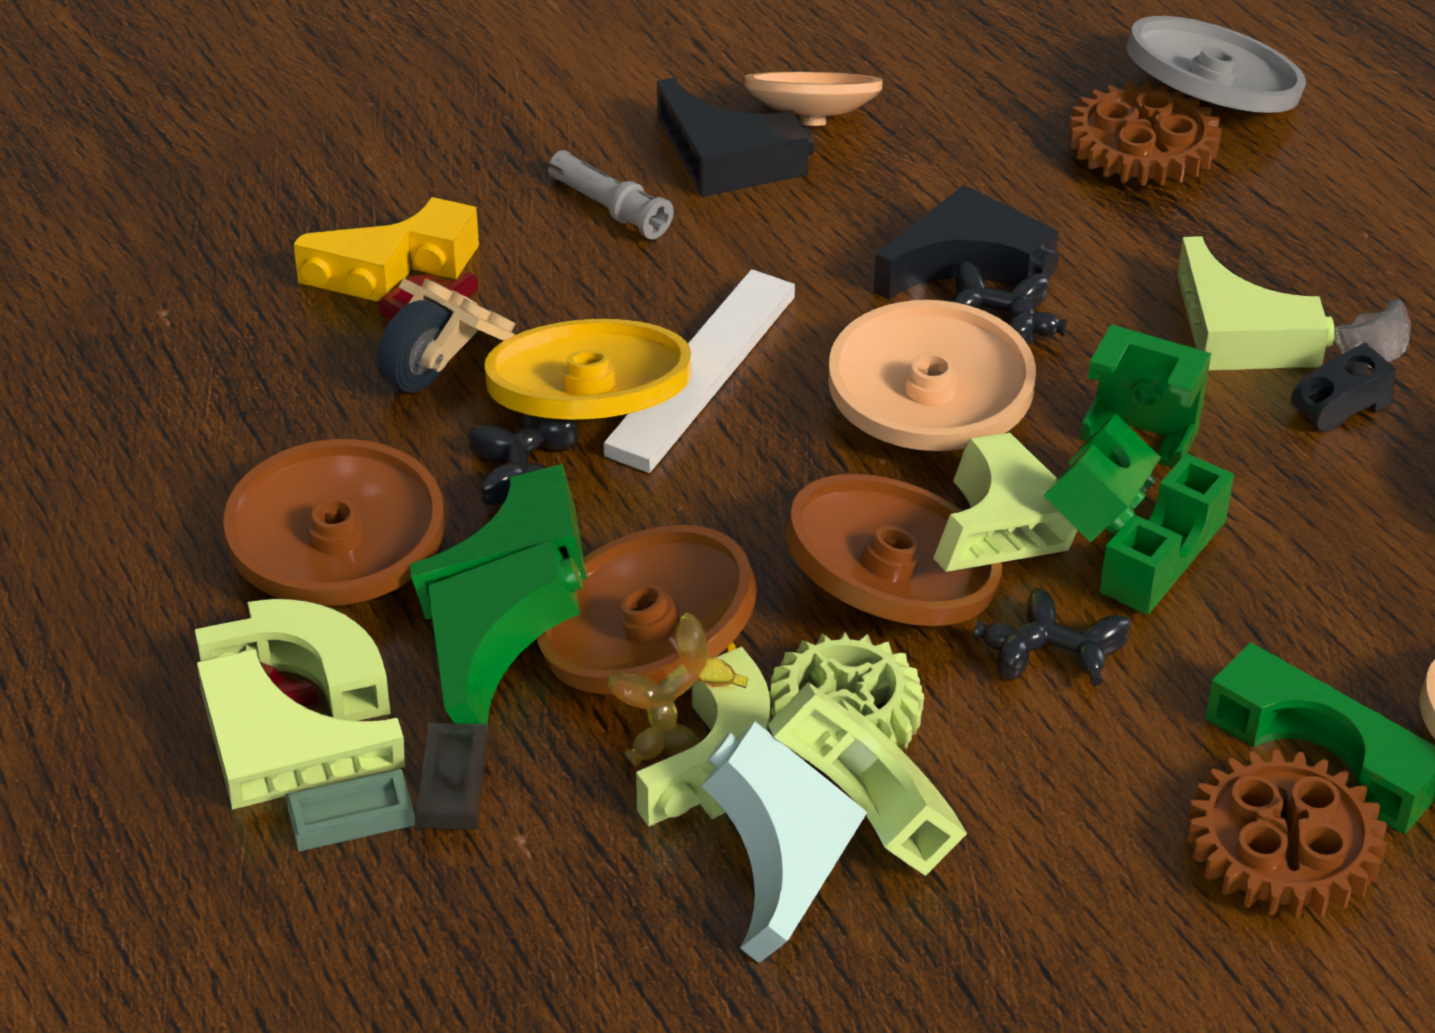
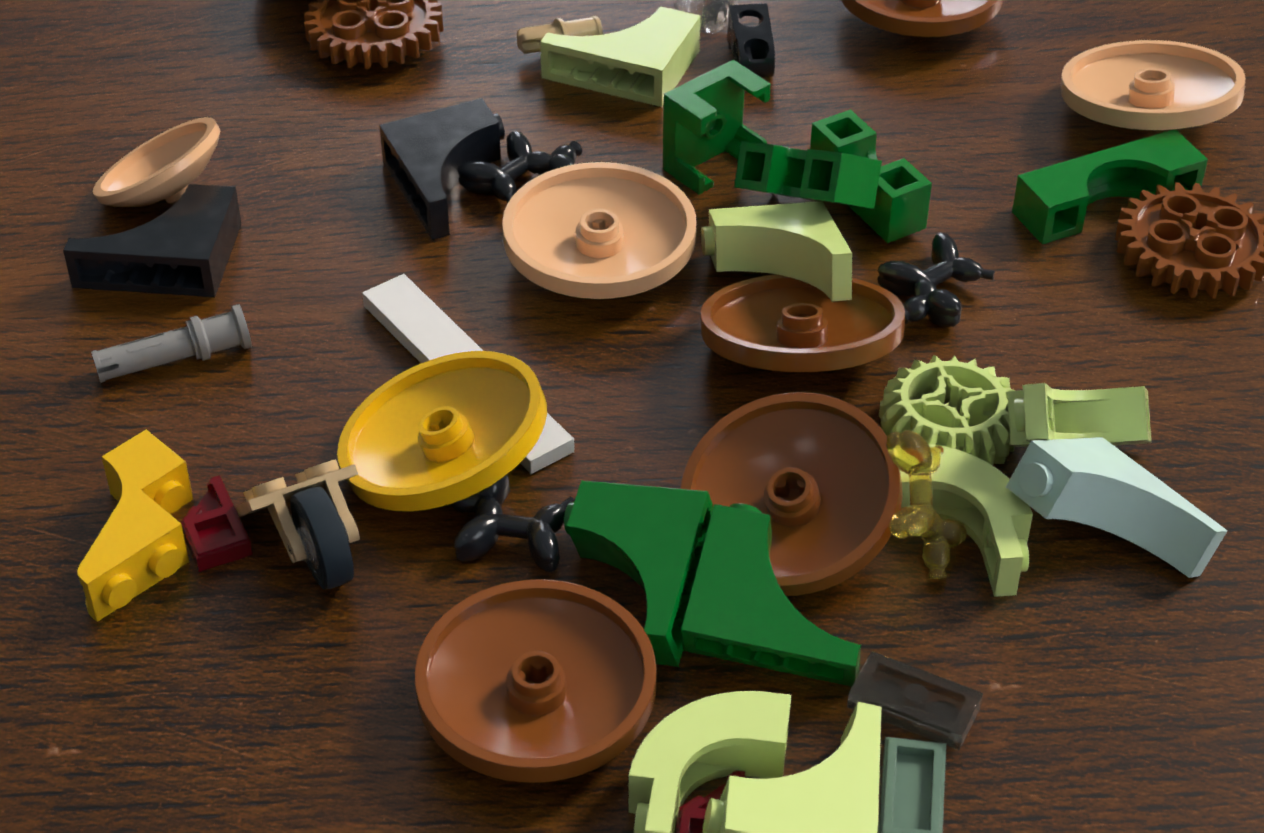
camera: 65 degrees left, 0 degrees up
(1241, 257) = (529, 38): none -> tan axle

